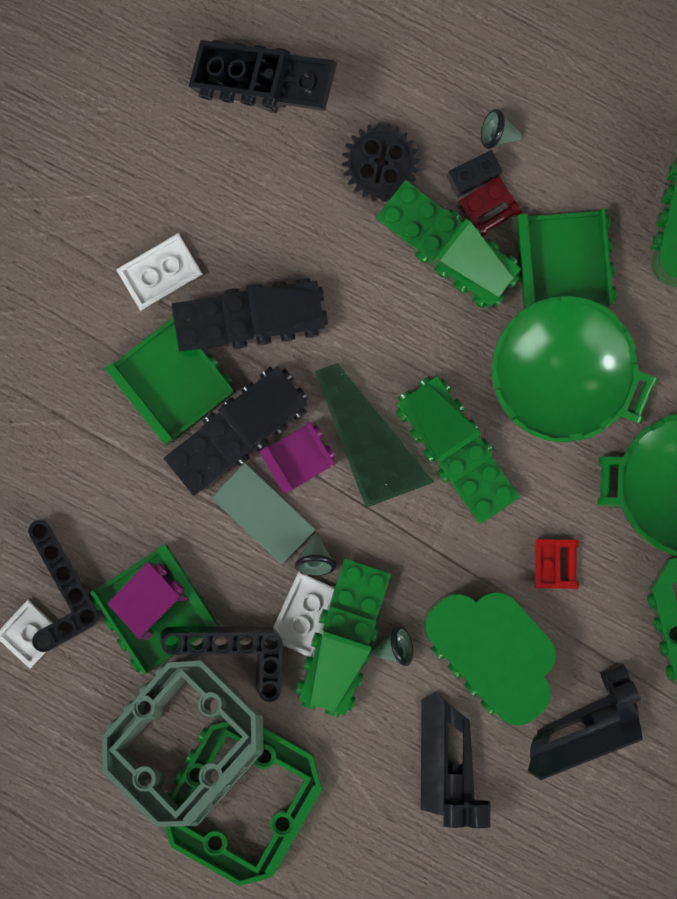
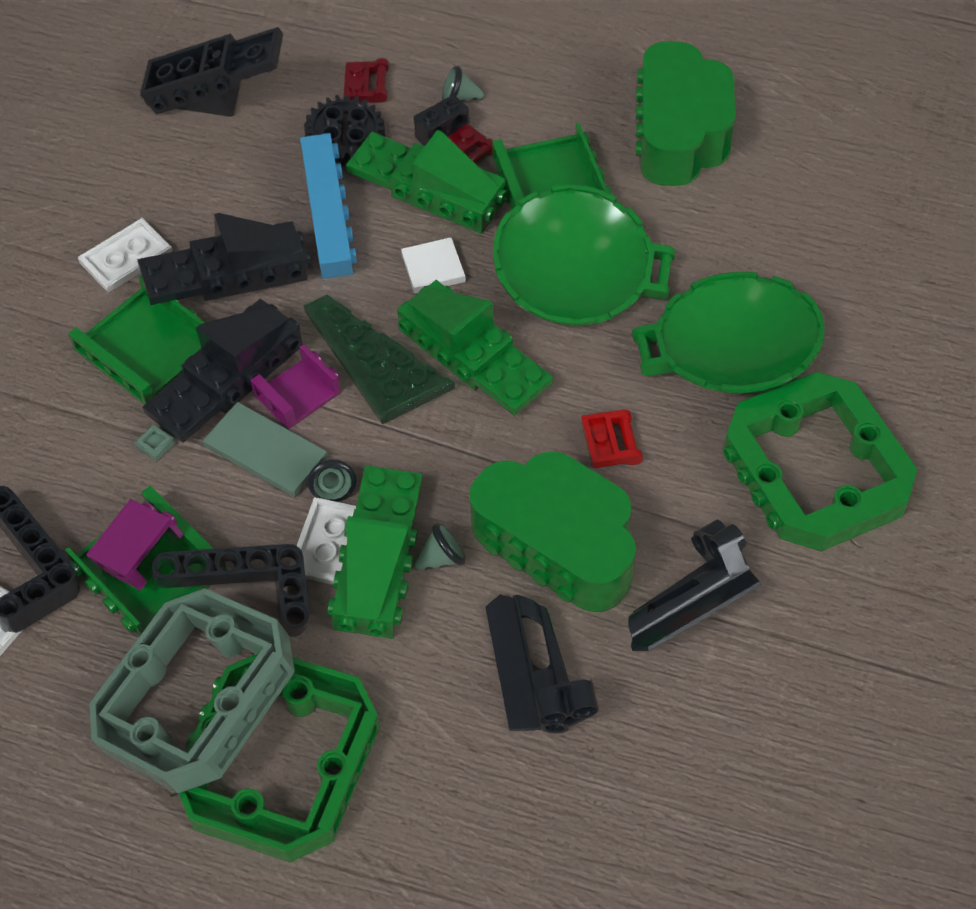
camera: 10 degrees left, 30 degrees down
(170, 488) = (154, 442): none -> sand green tile
(350, 260) = (326, 206): none -> dark azure brick
(402, 95) = (358, 80): none -> dark red plate
(437, 341) = (433, 262): none -> white tile

